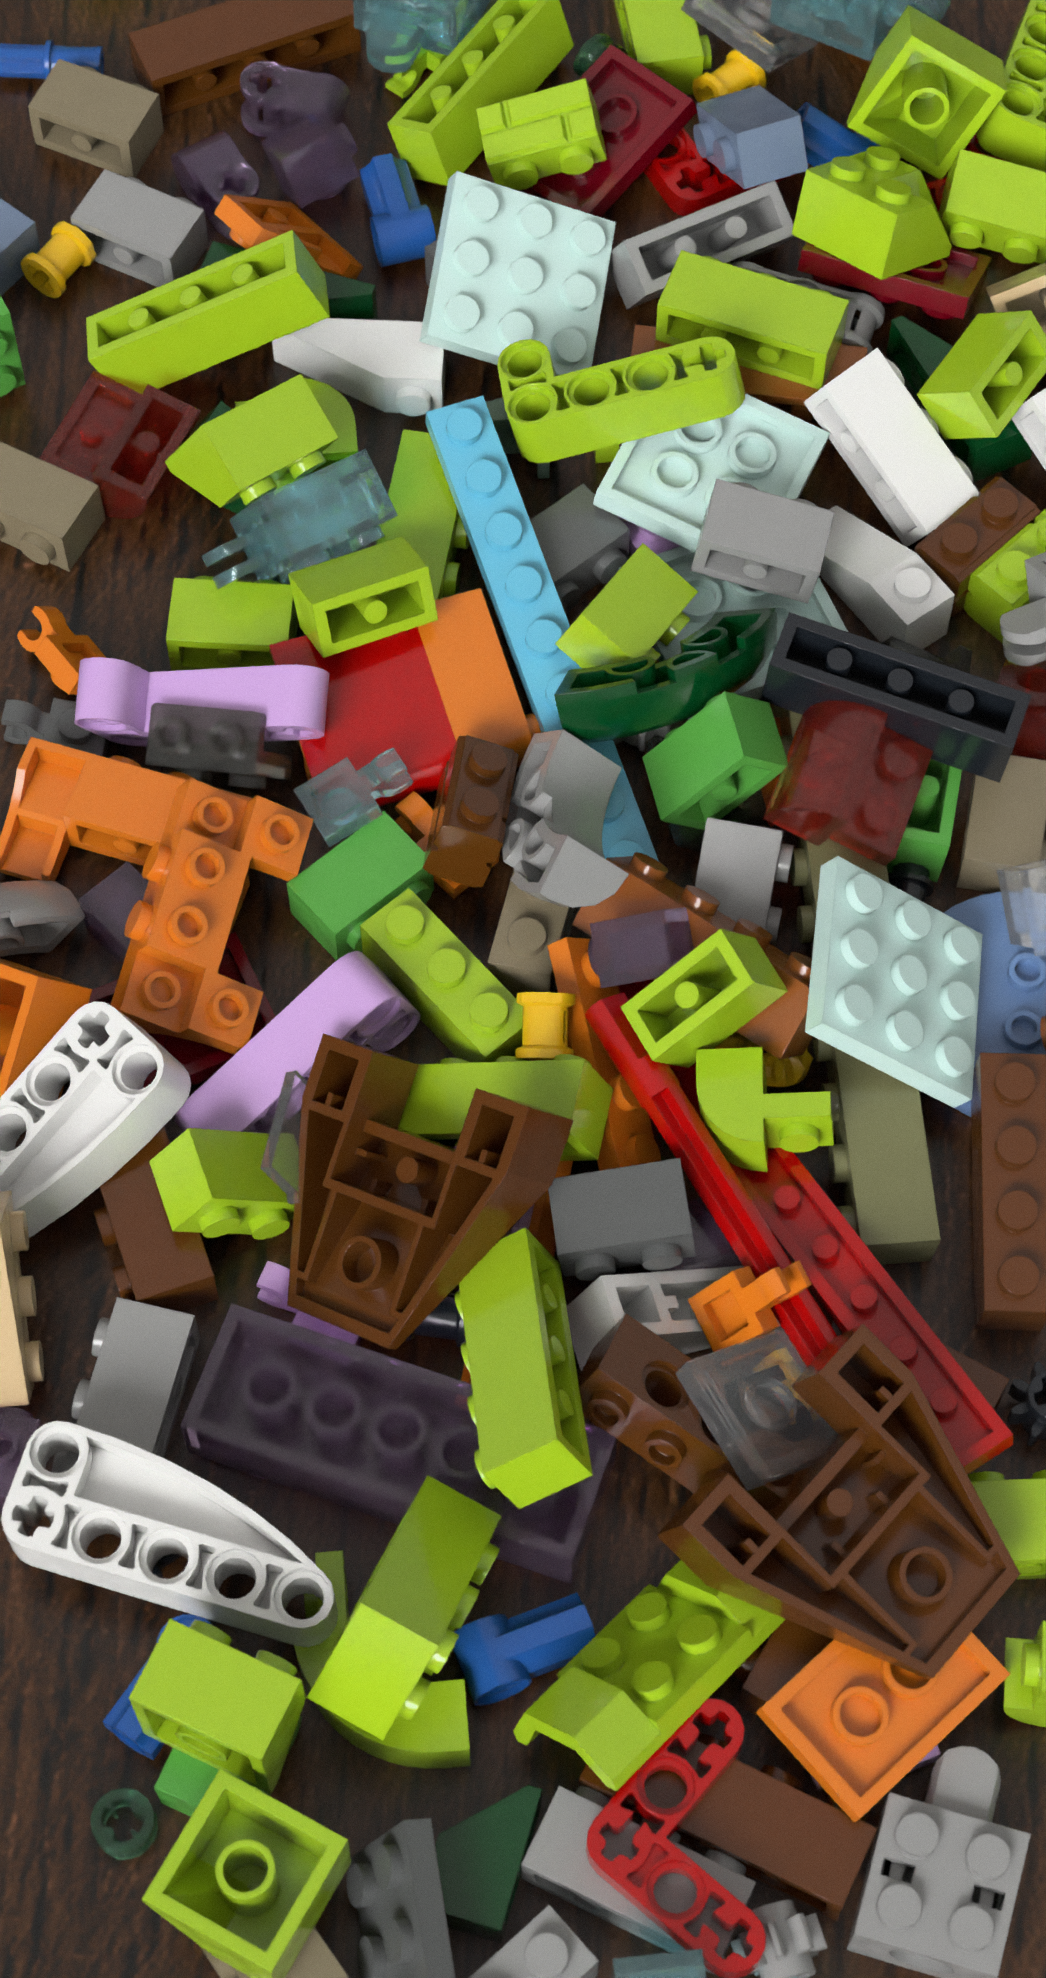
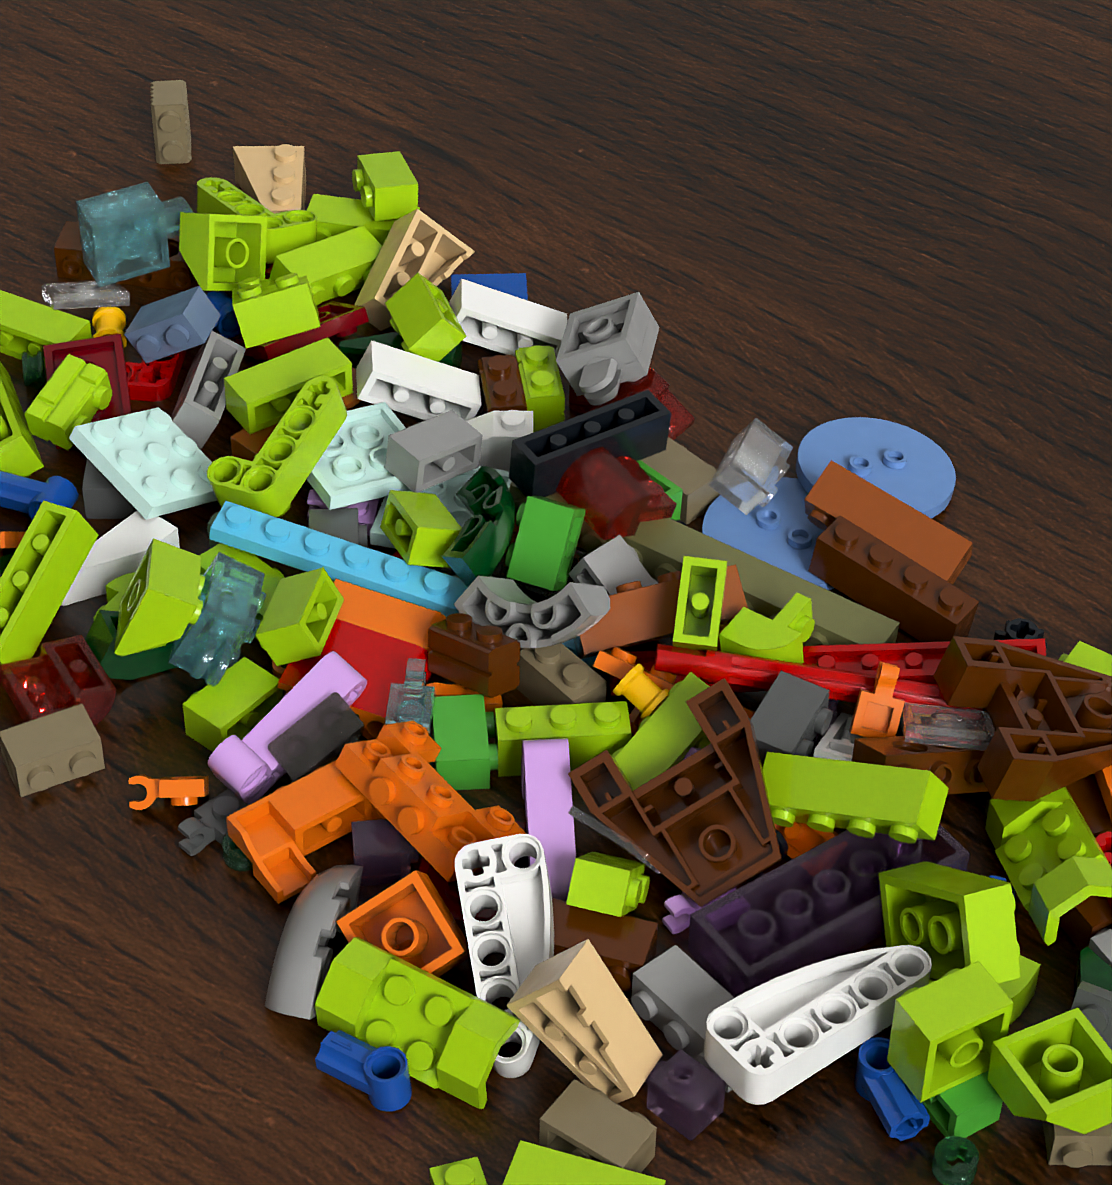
camera: 55 degrees left, 20 degrees down
(639, 946) = (640, 620): clear purple brick -> none
(894, 982) = (745, 546): light aqua plate -> none

